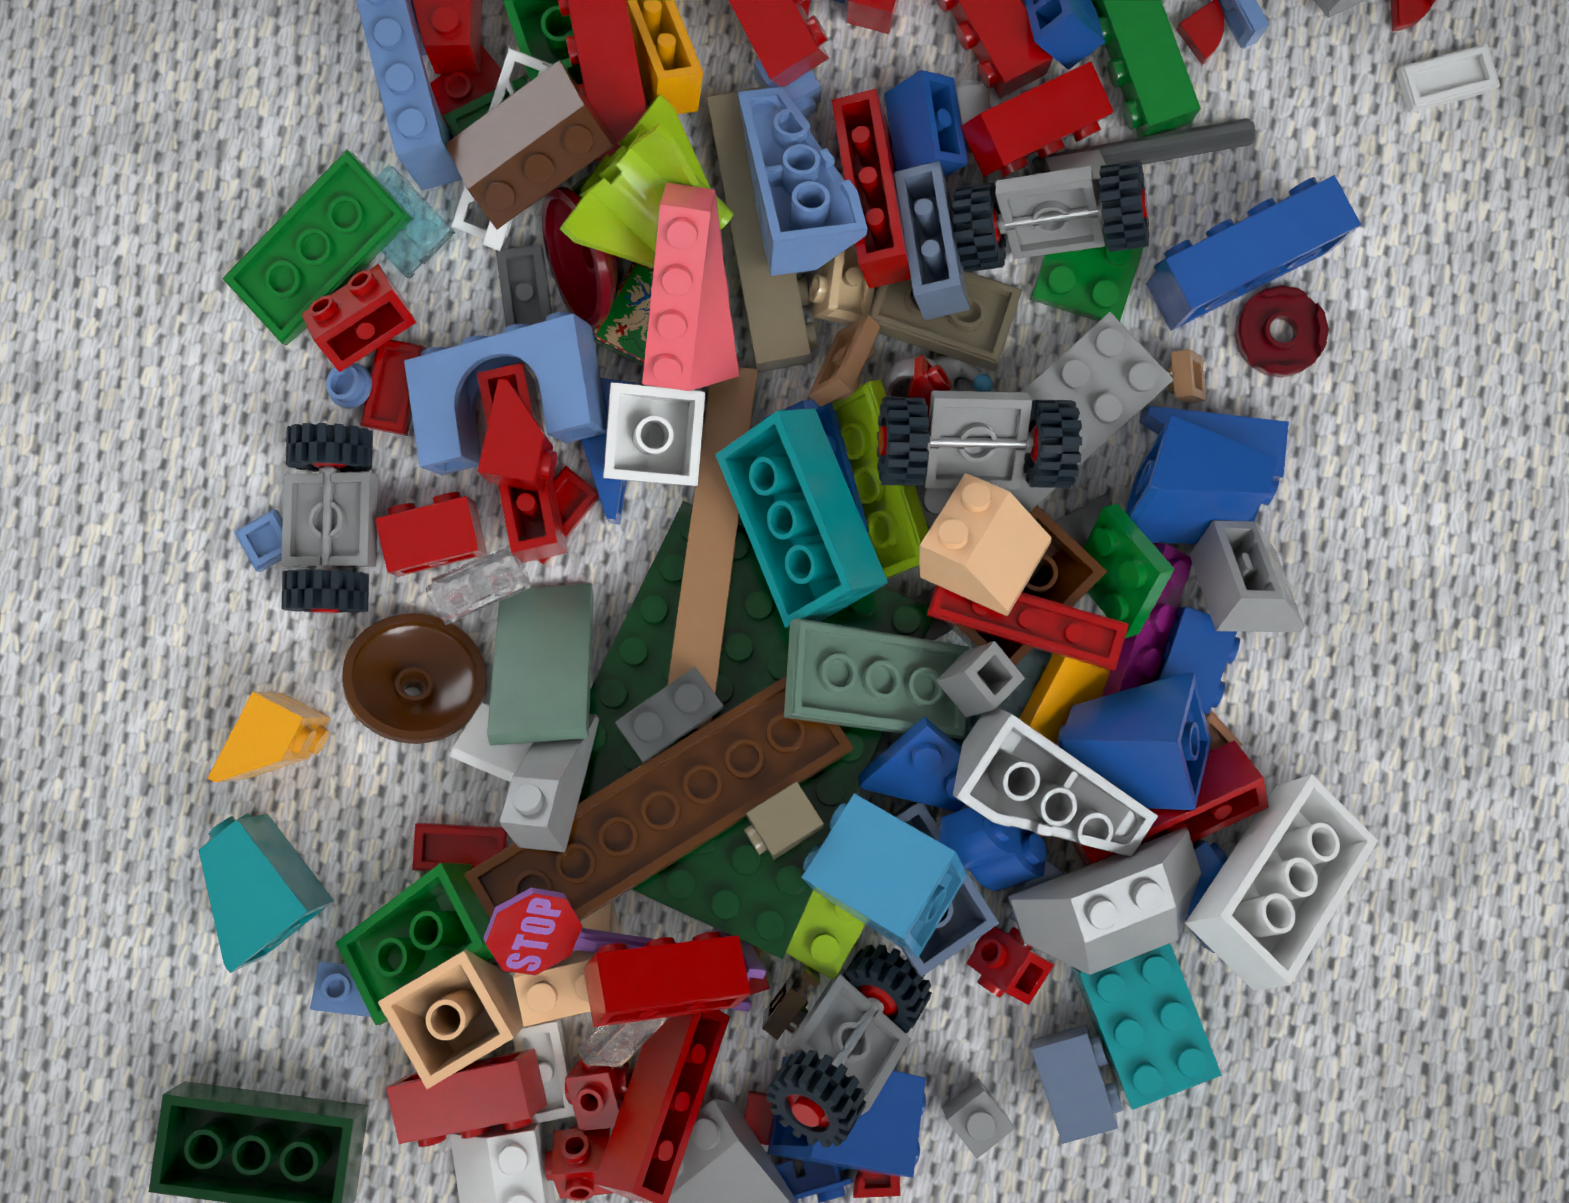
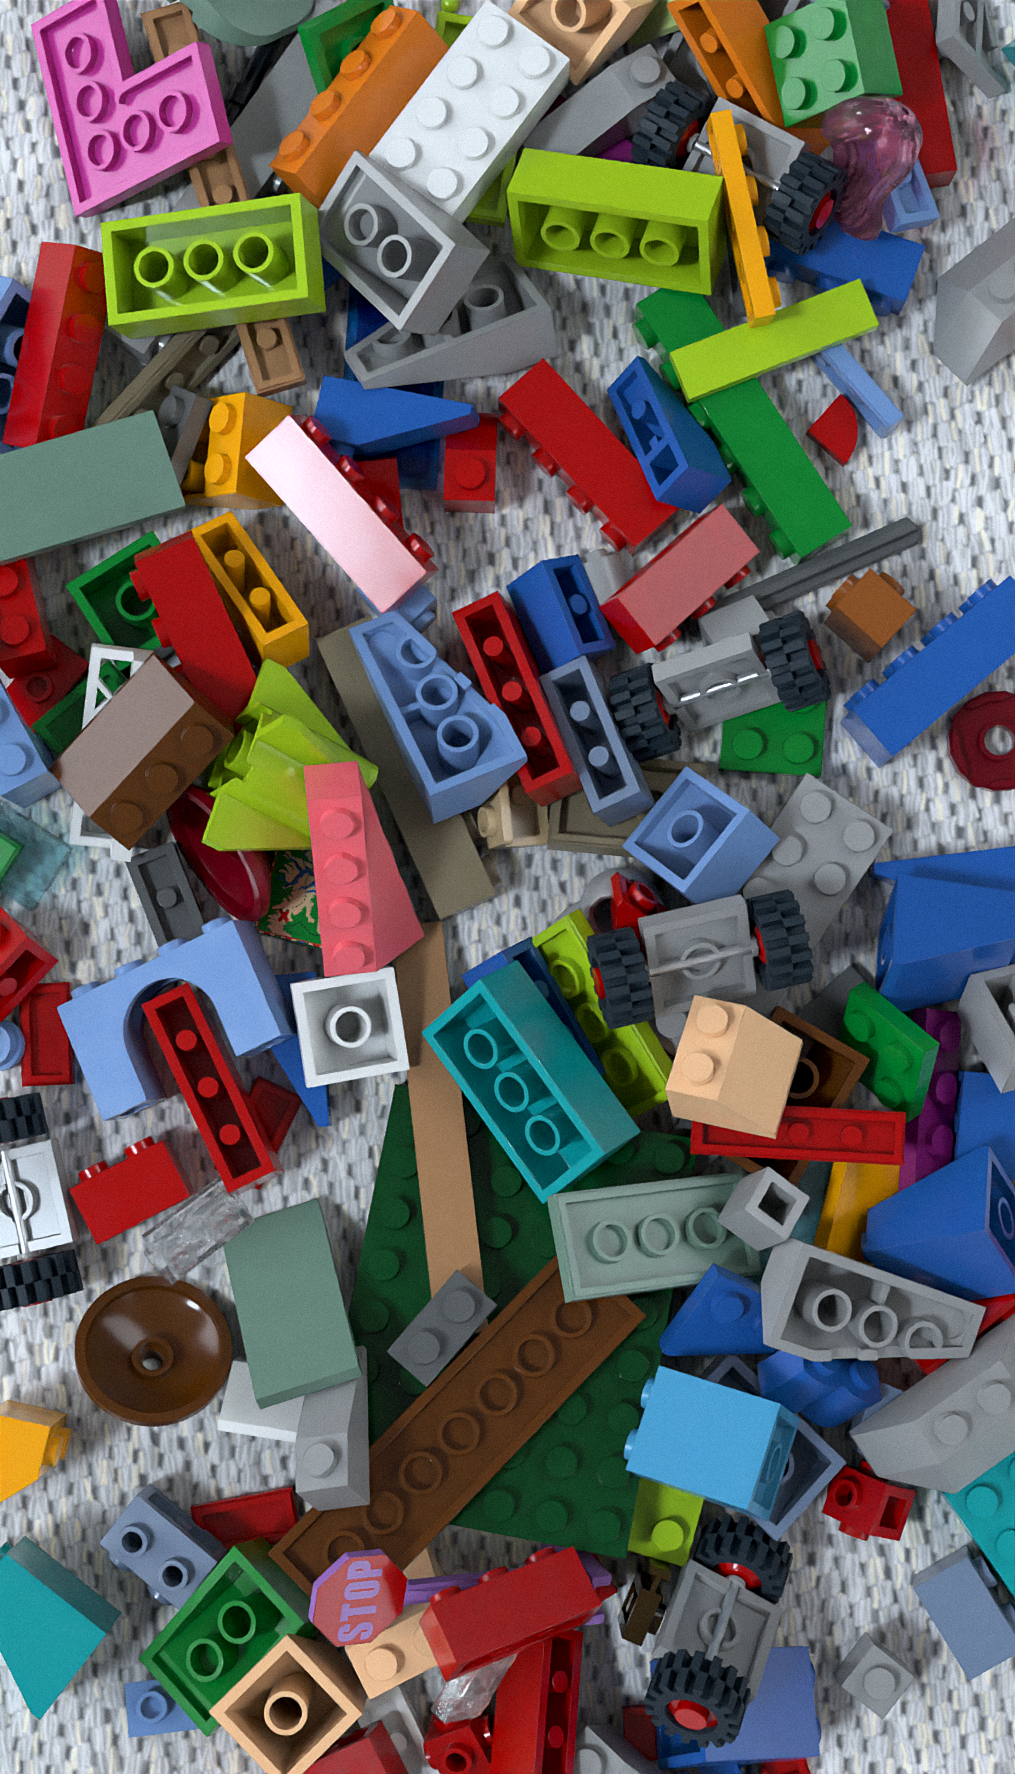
camera: 20 degrees left, 0 degrees up
(380, 849) = (163, 1547): none -> sand blue brick
(515, 445) = (206, 1076): red slope -> none
(782, 822) = (590, 1414): dark tan brick -> none
(845, 361) = (535, 894): medium nougat plate -> none
(1003, 343) = (701, 840): none -> medium blue slope
(1187, 376) = (908, 818): medium nougat plate -> none
(1197, 186) = (868, 612): none -> dark orange brick

